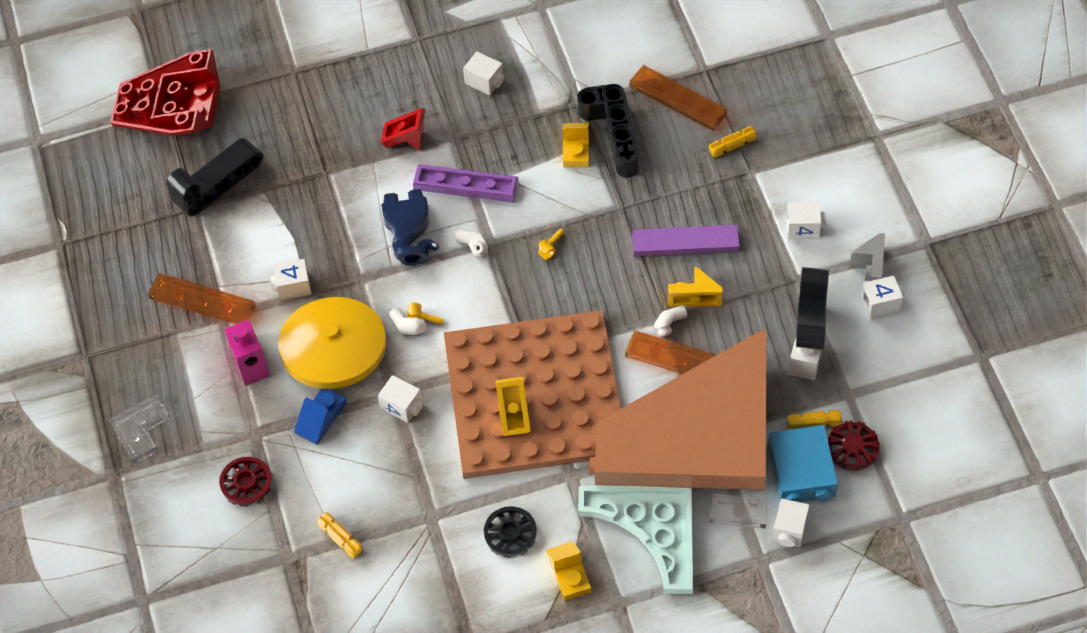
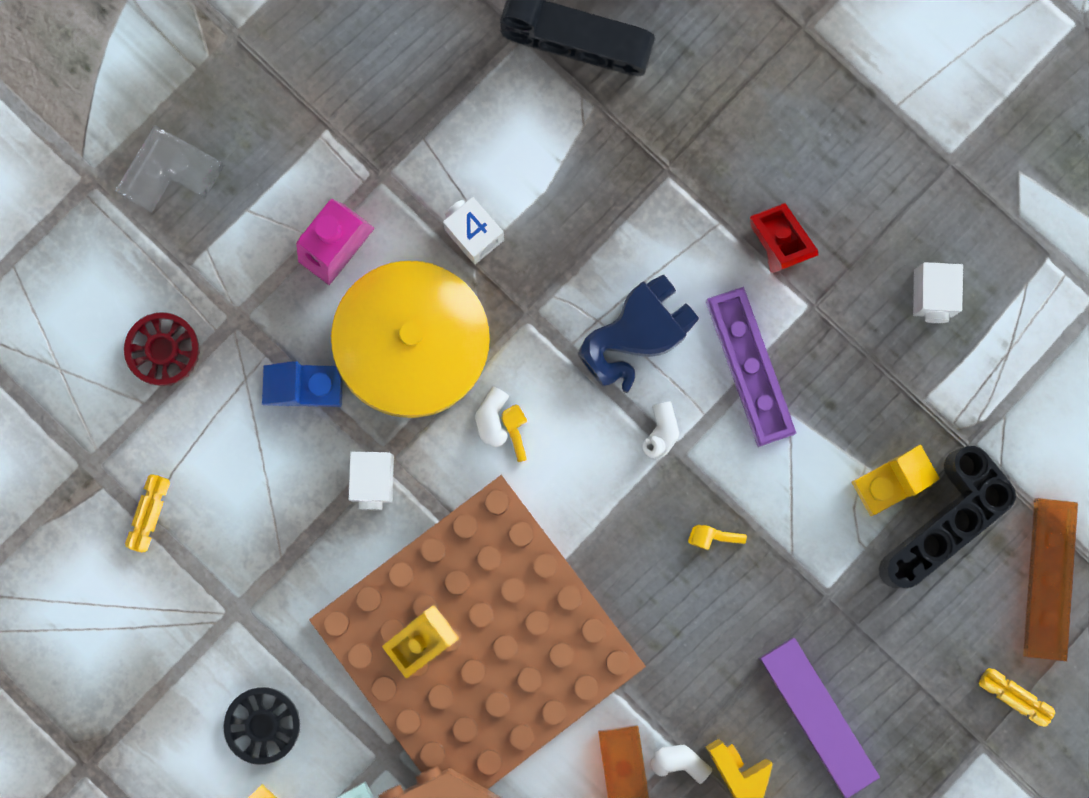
camera: 50 degrees right, 25 degrees up
(201, 299) = (388, 131): clear orange tile -> none

